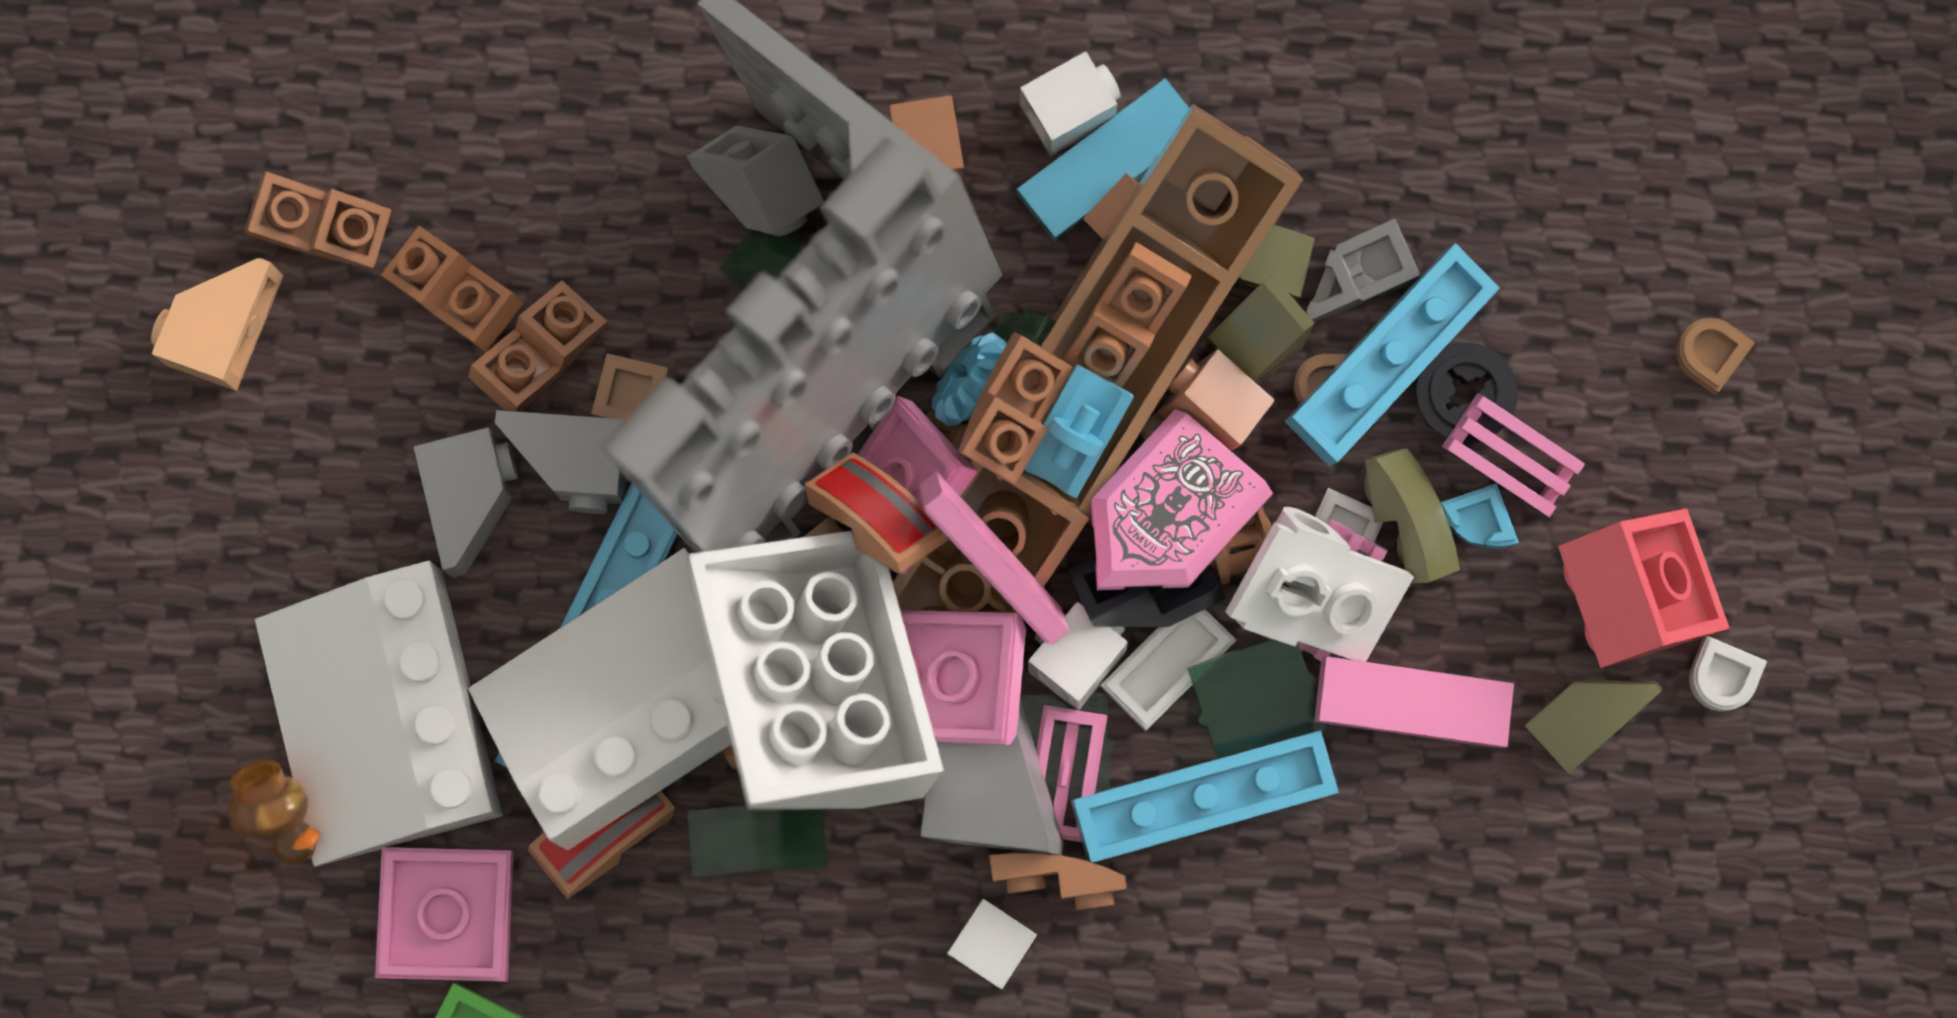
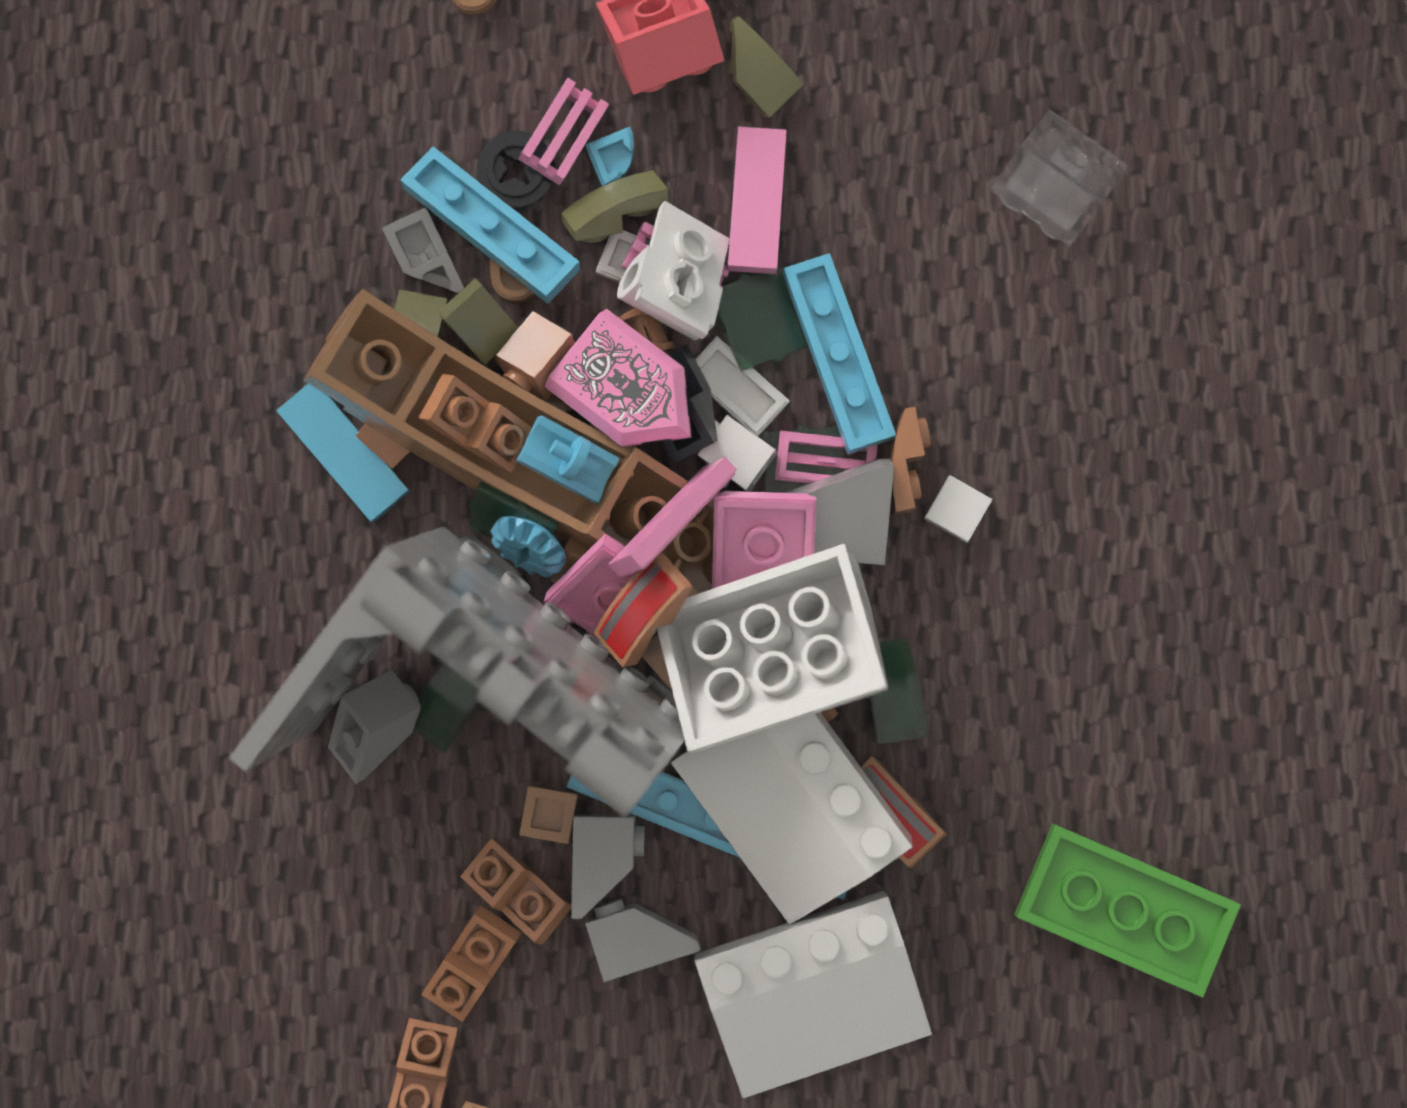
camera: 90 degrees left, 5 degrees up
(270, 805) = (890, 1070): clear orange animal -> none
(444, 914) = (962, 929): bright pink tile -> none
(933, 127) = (328, 590): nougat brick -> none
(1011, 407) = (554, 510): nougat slope -> none
(1070, 102) = (299, 483): white brick -> none

